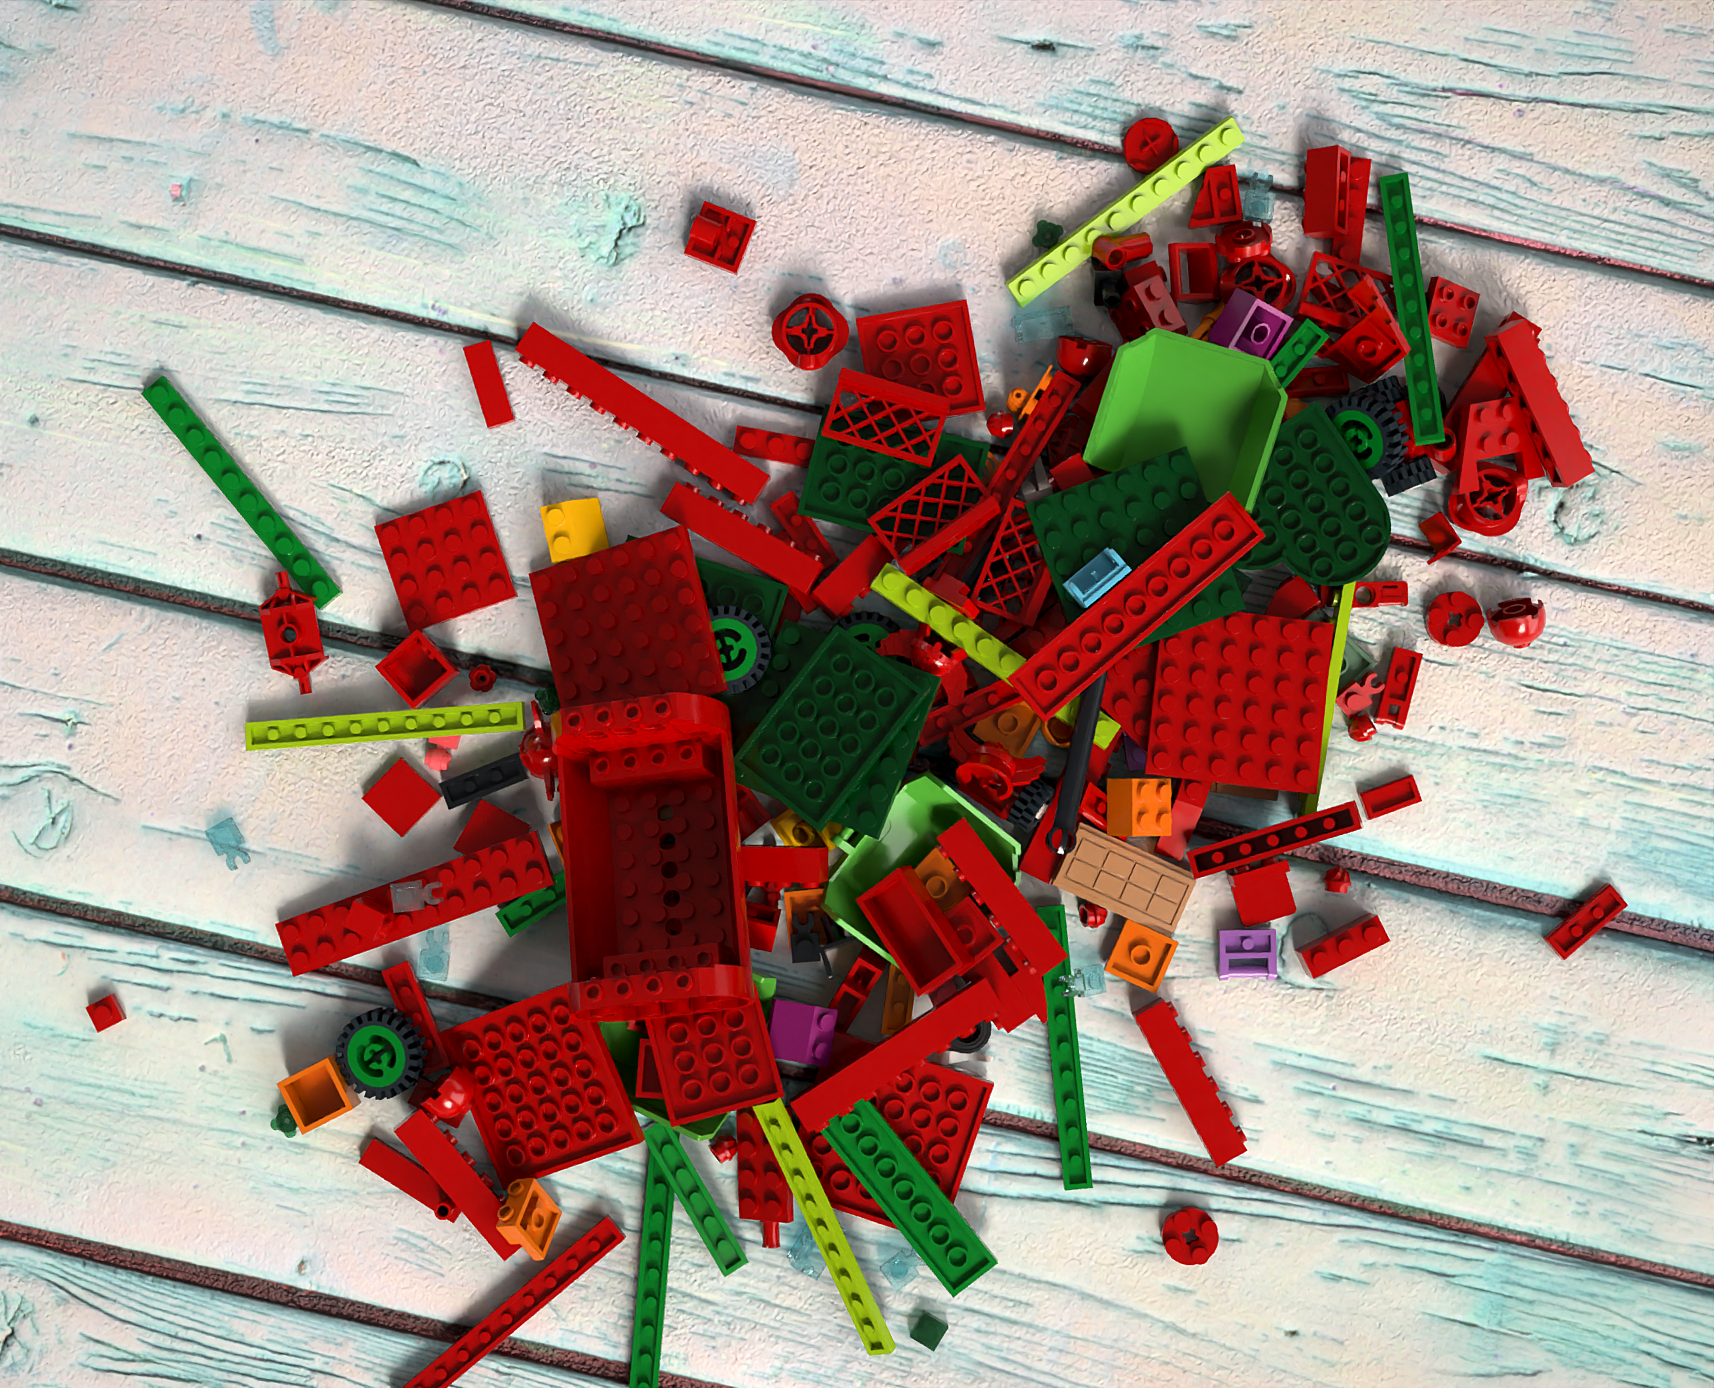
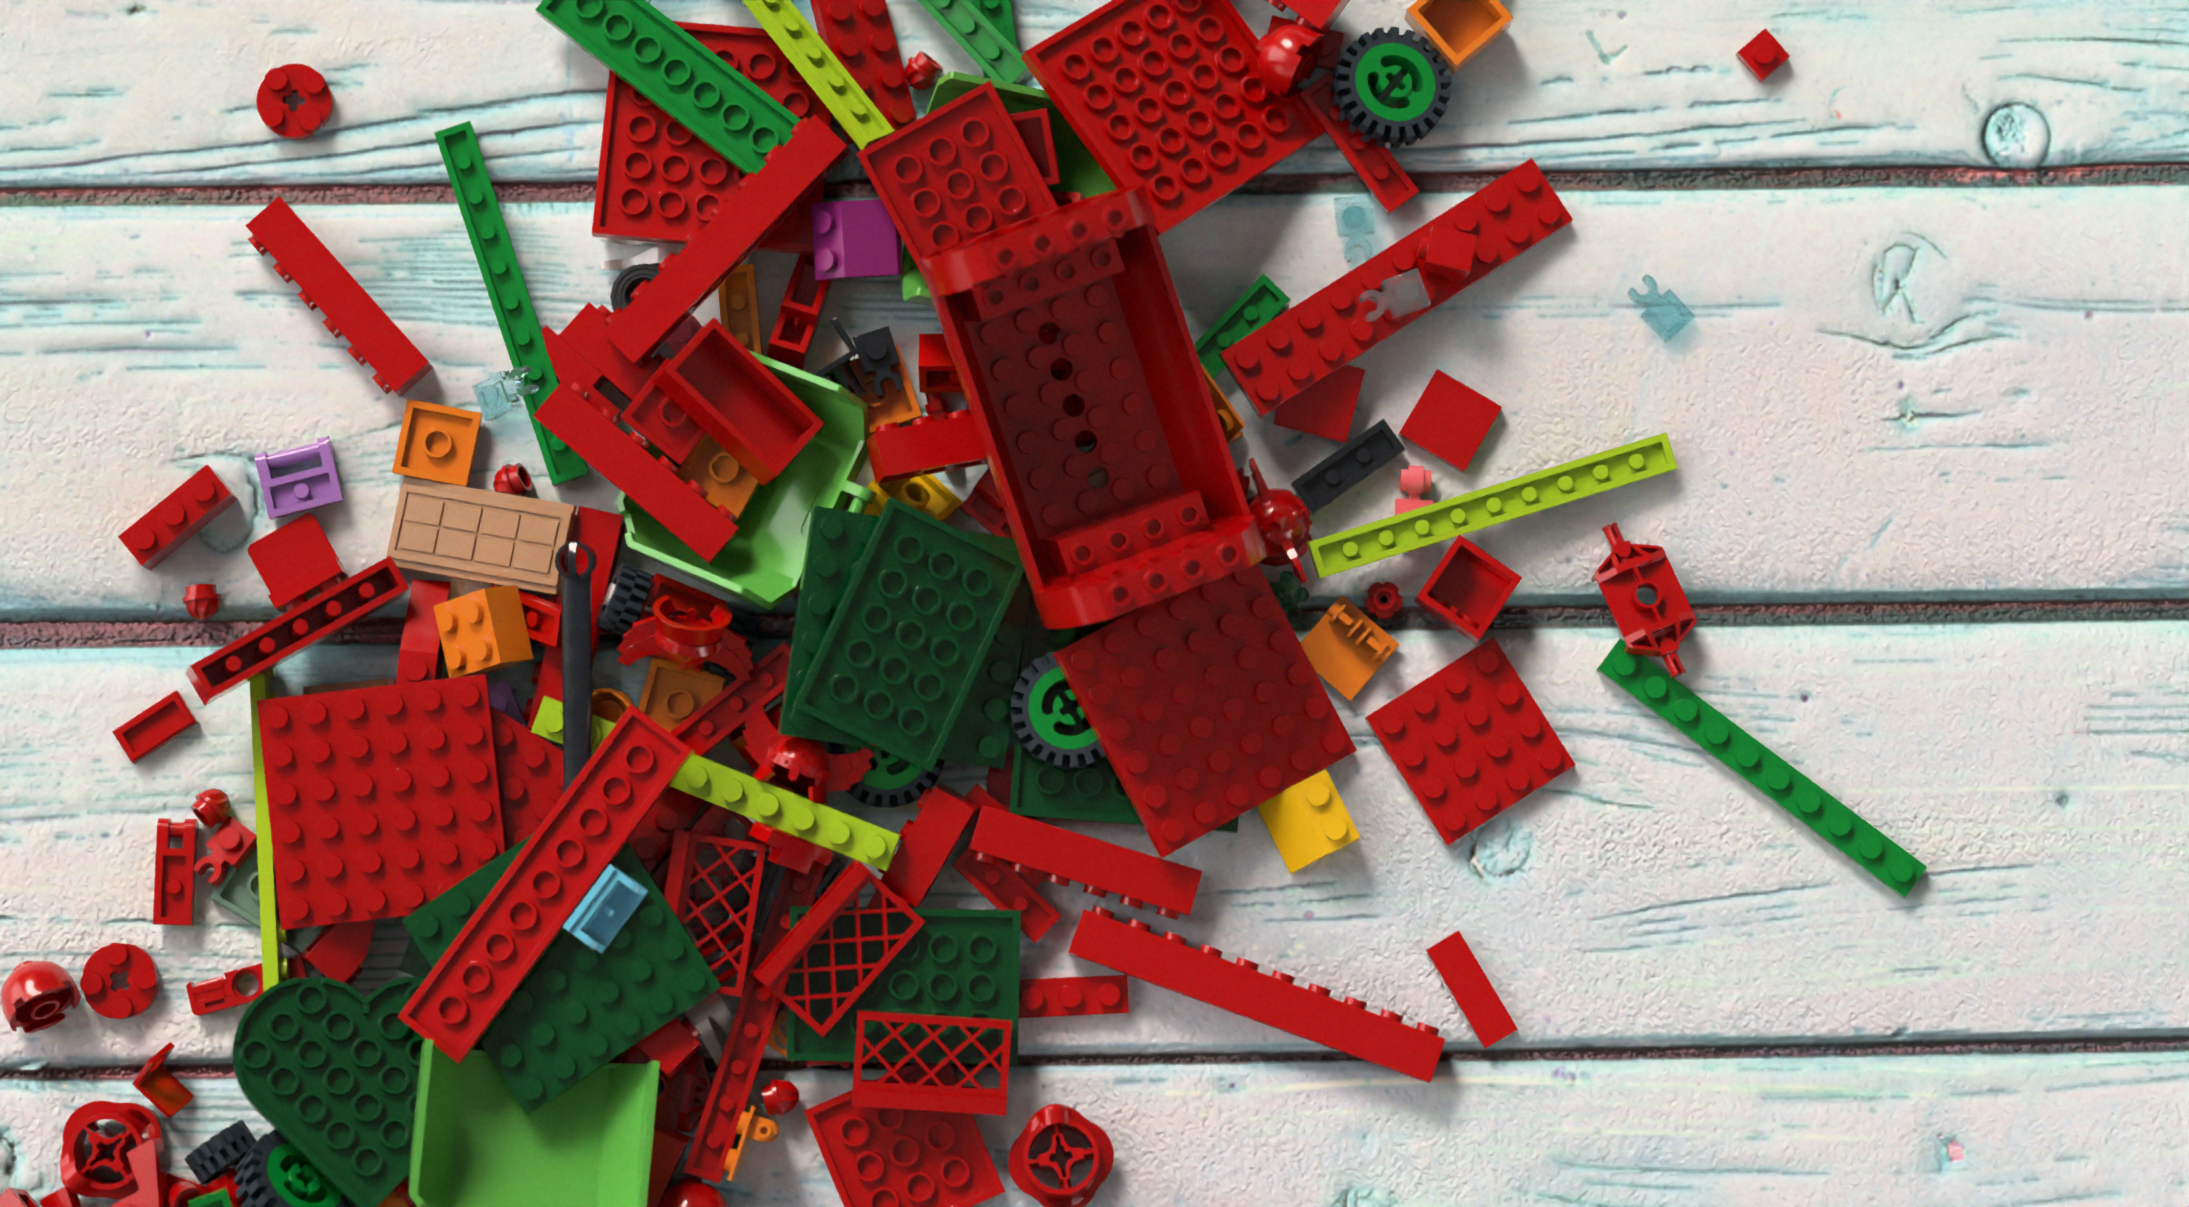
camera: 170 degrees right, 5 degrees down
(516, 649) = (1347, 647): none -> orange hinge

